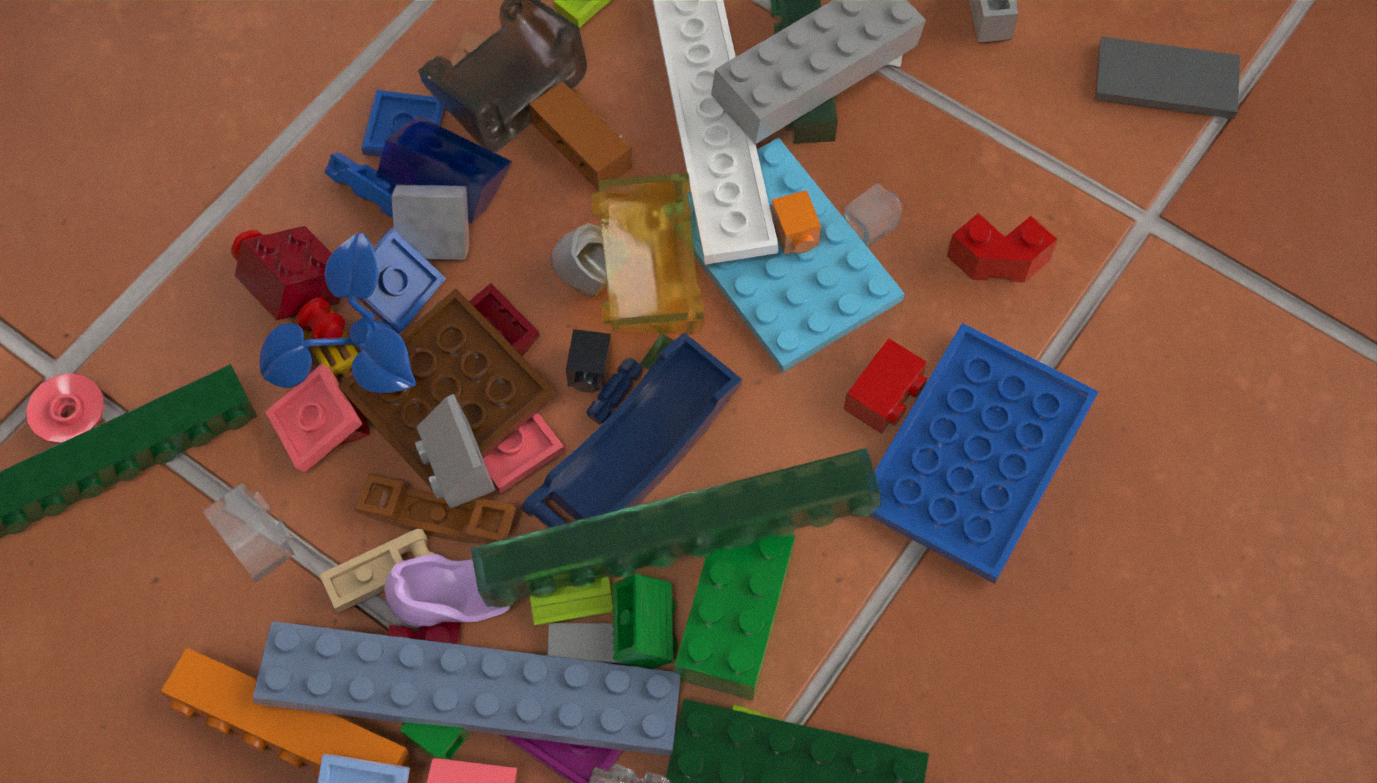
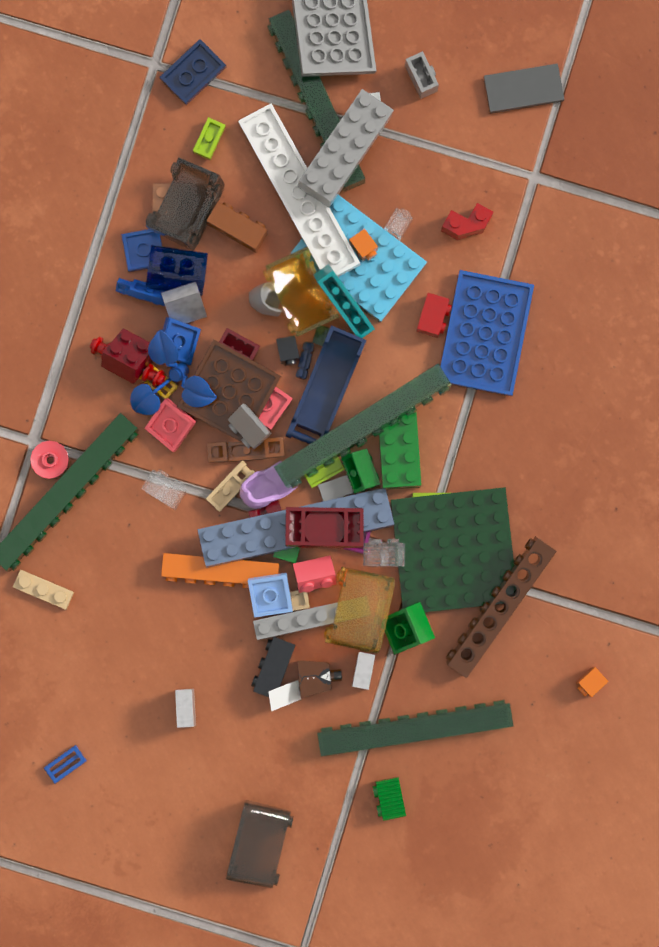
camera: 20 degrees left, 20 degrees up
(522, 701) = (324, 527): none -> dark red slope
(723, 298) = (343, 301): none -> teal brick

